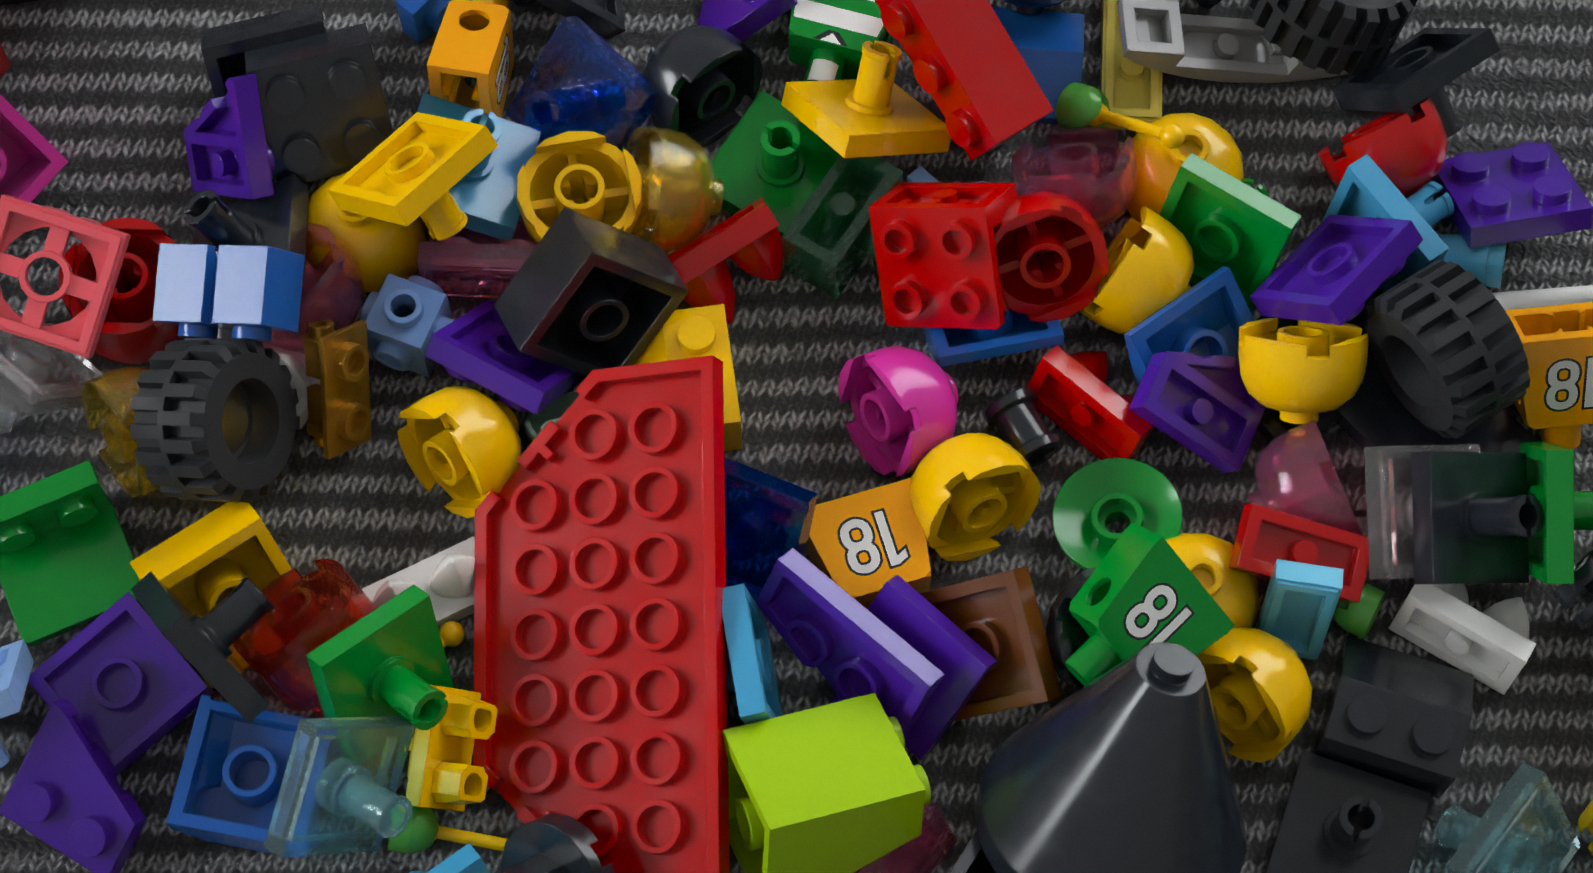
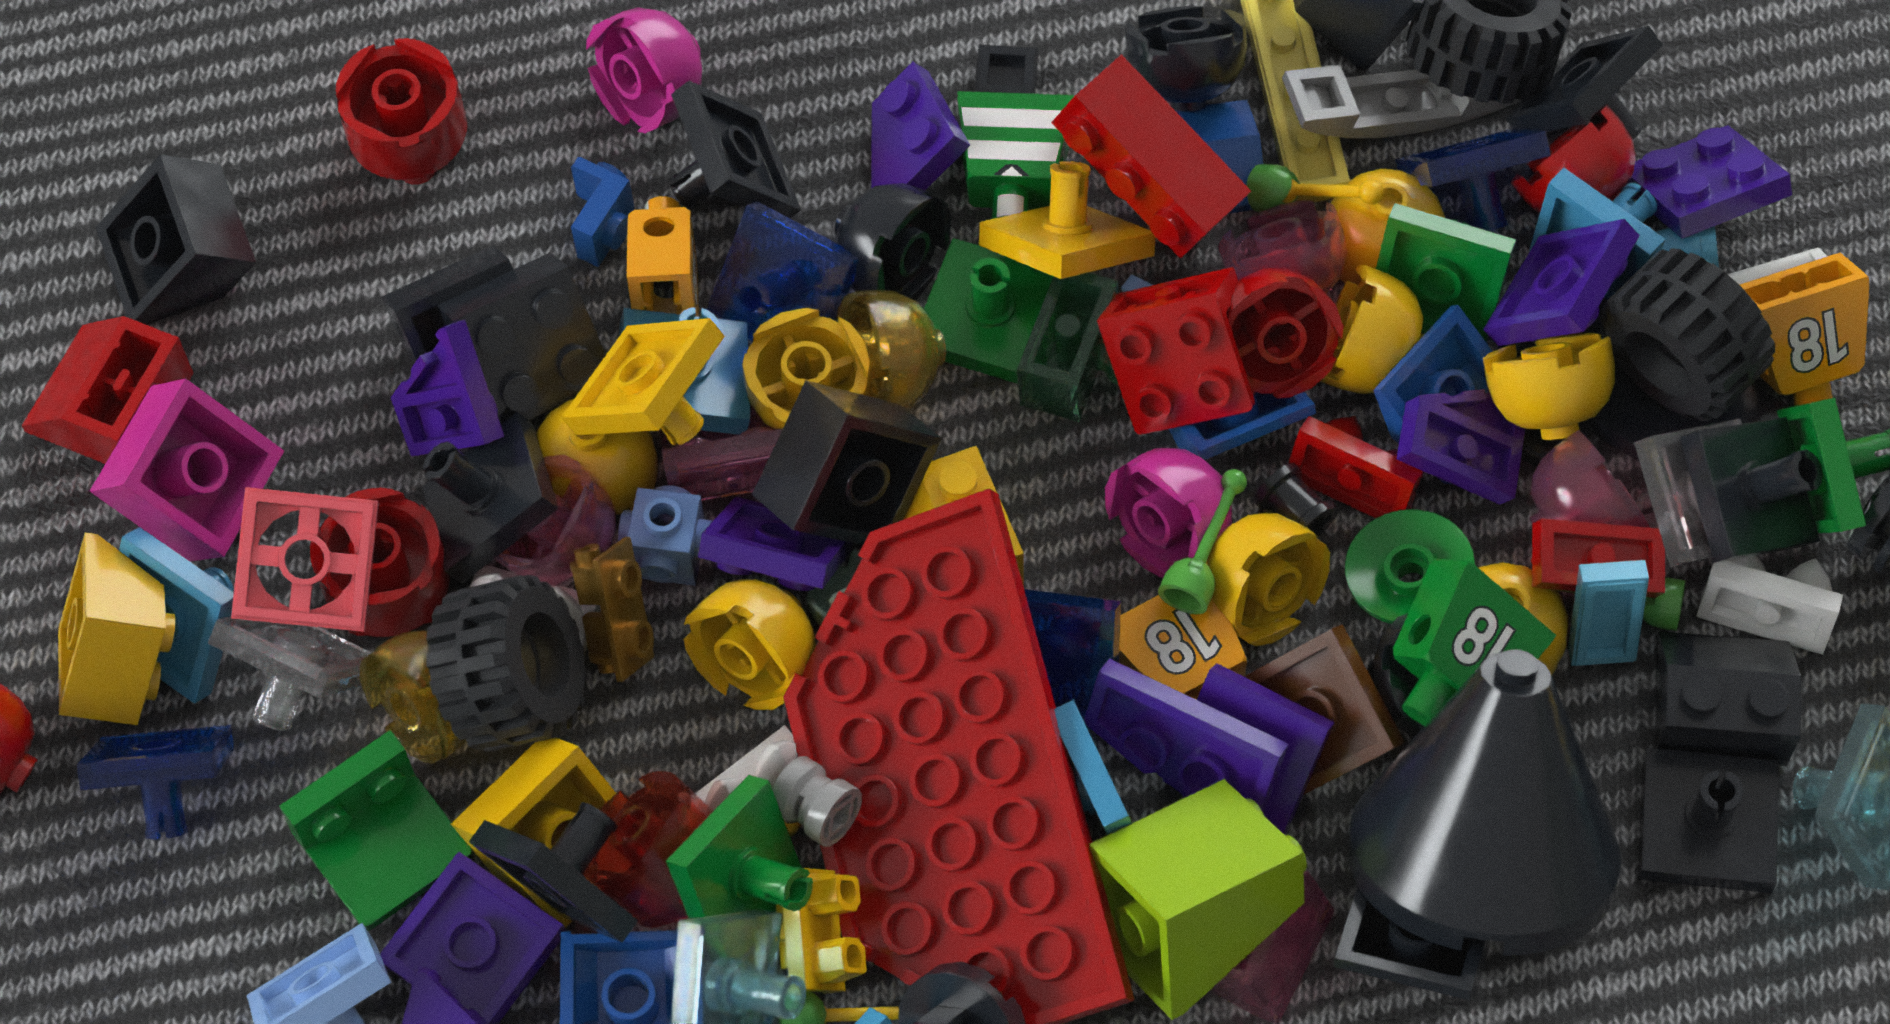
camera: 10 degrees left, 5 degrees down
(228, 289) = (504, 529): piece -> none
(478, 627) = (815, 801): none -> light grey wheel
(748, 239) = (978, 380): red tile -> none
(893, 486) = (1190, 581): none -> bright green hinge
(1257, 692) = (1599, 697): yellow cylinder -> none
(1283, 129) = (1474, 167): none -> clear blue tile

